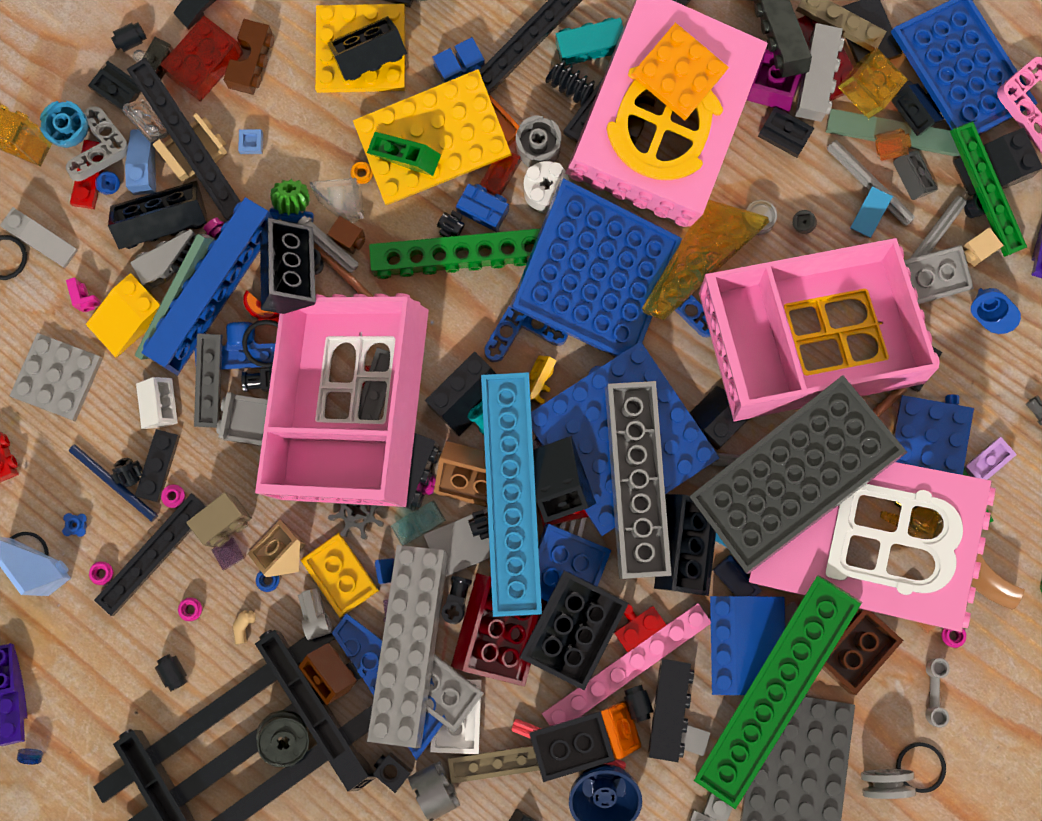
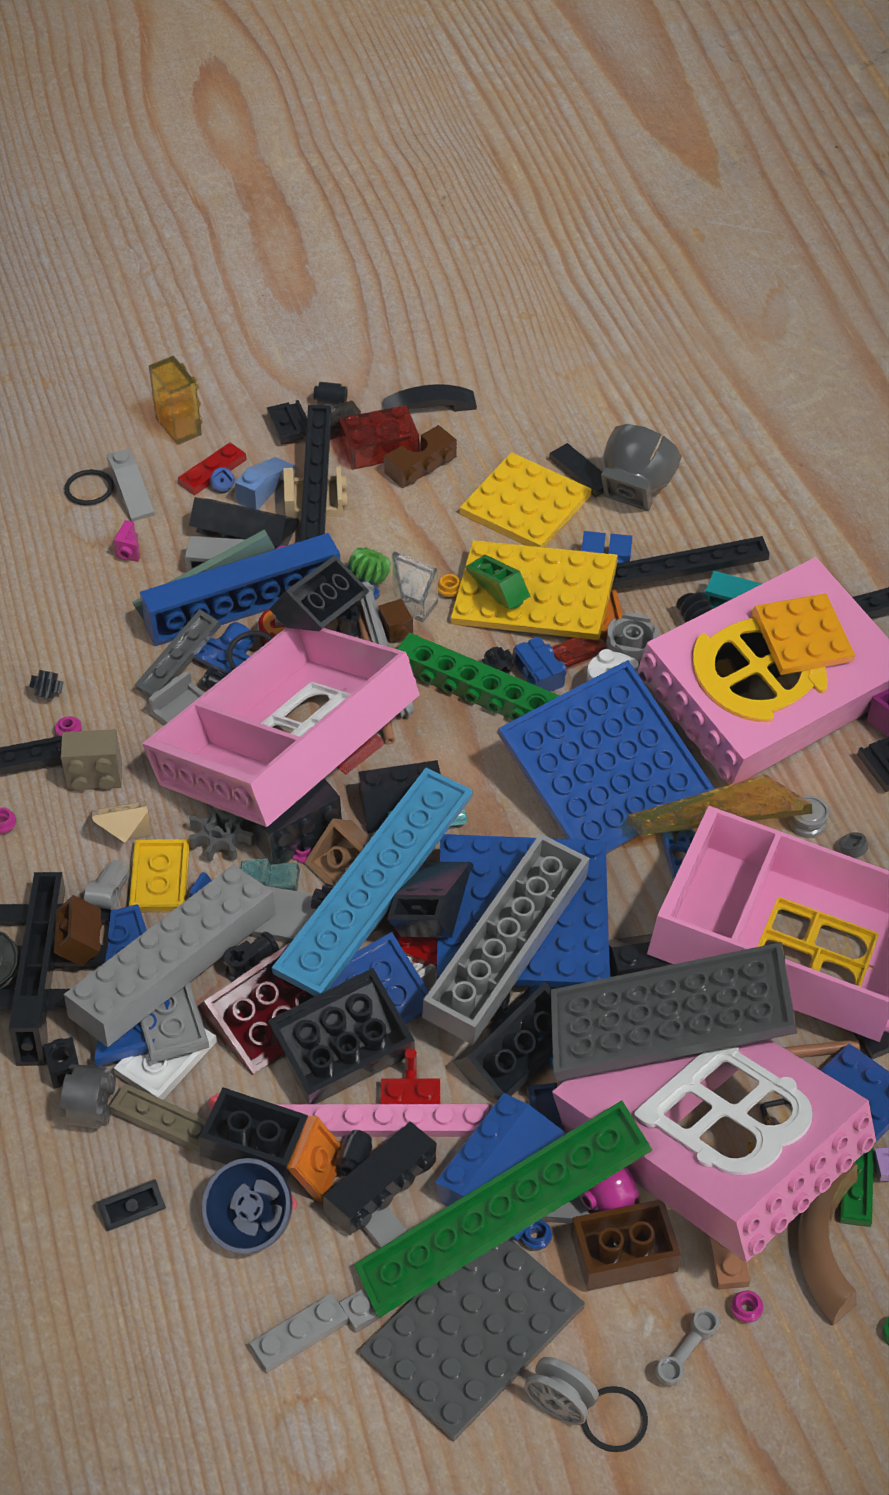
camera: 30 degrees right, 30 degrees down
(56, 377) = (52, 589): light grey plate -> none
(64, 124) = (223, 419): dark azure cylinder -> none
(105, 148) = (233, 454): light grey beam -> none
(108, 479) = (26, 691): dark blue axle -> none
(124, 315) = (147, 570): yellow slope -> none
(145, 119) = (293, 451): clear plate -> none
(156, 403) = (119, 651): white brick -> none
(157, 465) = (76, 698): black plate -> none
(228, 554) = (75, 800): clear purple plate -> none
(240, 625) = (31, 861): tan arm -> none
(250, 141) = (370, 514): medium blue plate -> none
(263, 586) = (91, 833): blue plate -> none
(367, 48) = (528, 497): black slope -> none
(523, 322) = (503, 774): blue beam -> none
(540, 372) = (492, 820): yellow plate -> none

